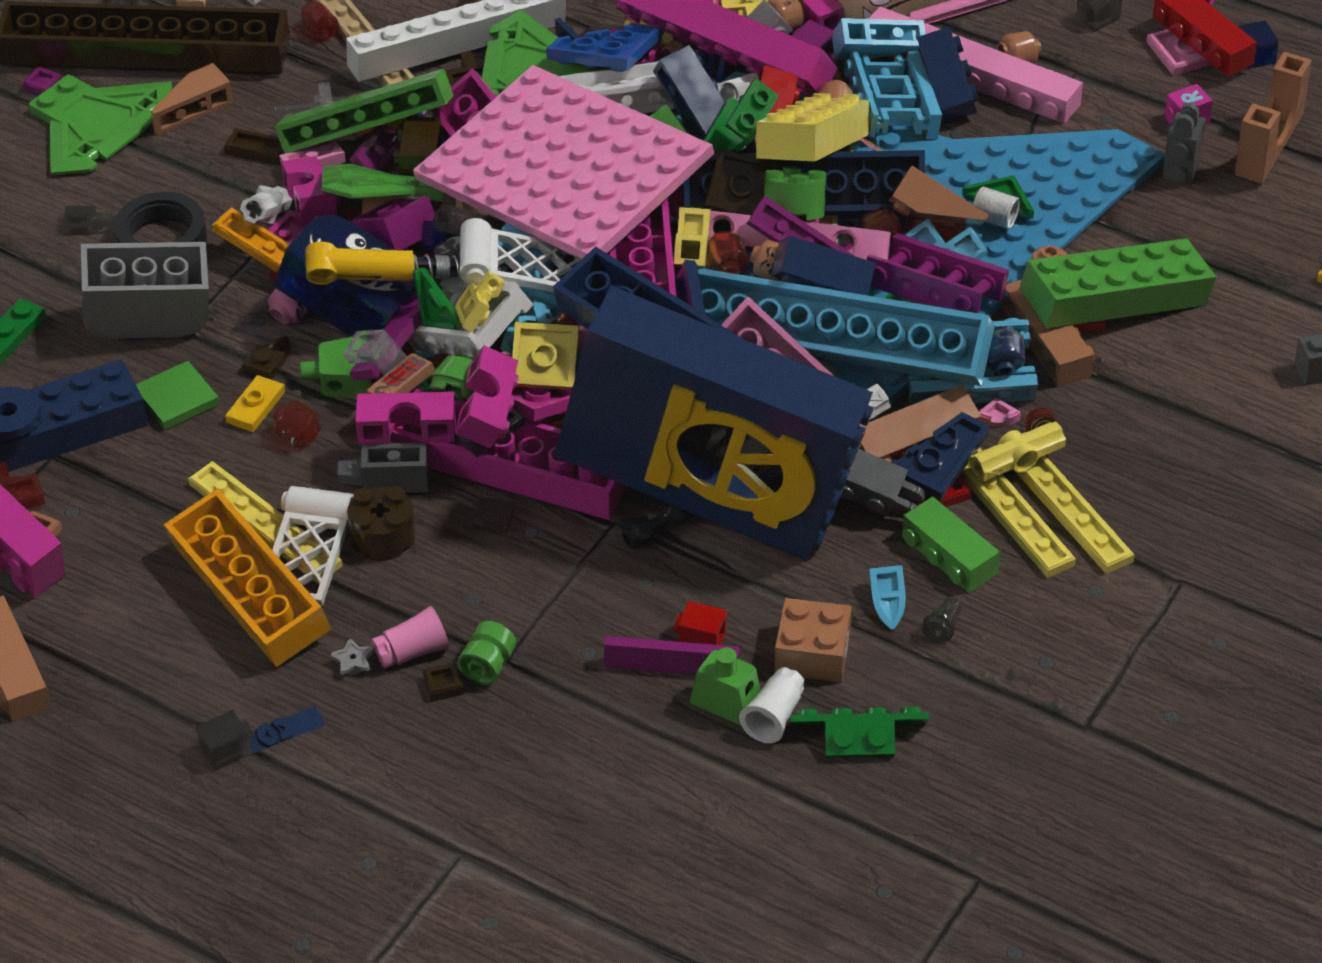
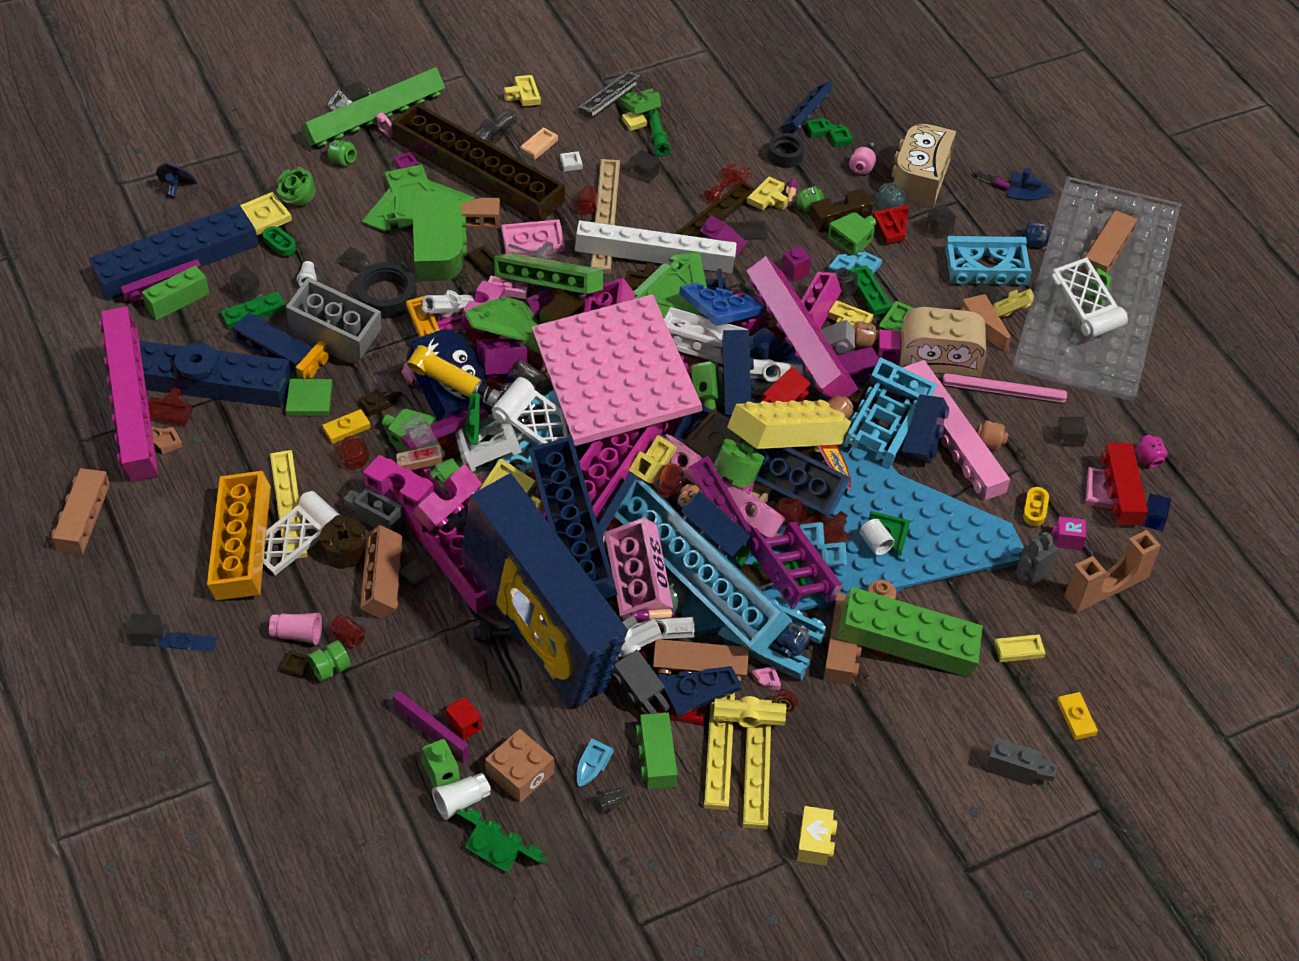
camera: 30 degrees right, 5 degrees up
(41, 263) = (306, 271): none -> white cone
(63, 355) = (269, 340): none -> dark blue brick
(146, 346) = (312, 361): none -> light orange plate
(179, 133) = (438, 235): none -> bright green brick
(287, 87) = (533, 235): none -> bright pink tile
(356, 665) = (258, 625): light grey plate -> none
(460, 529) = (381, 572): none -> nougat brick
(472, 610) = (348, 631): none -> clear red brick
(473, 303) = (486, 433): light yellow hinge -> none
(737, 120) = (747, 391): green panel -> none
(929, 199) = (826, 508): nougat slope -> none
(1128, 100) = (1036, 506): none -> yellow plate
(1195, 535) = (816, 836): none -> light yellow brick
(1234, 248) = (1019, 648): none -> light yellow tile

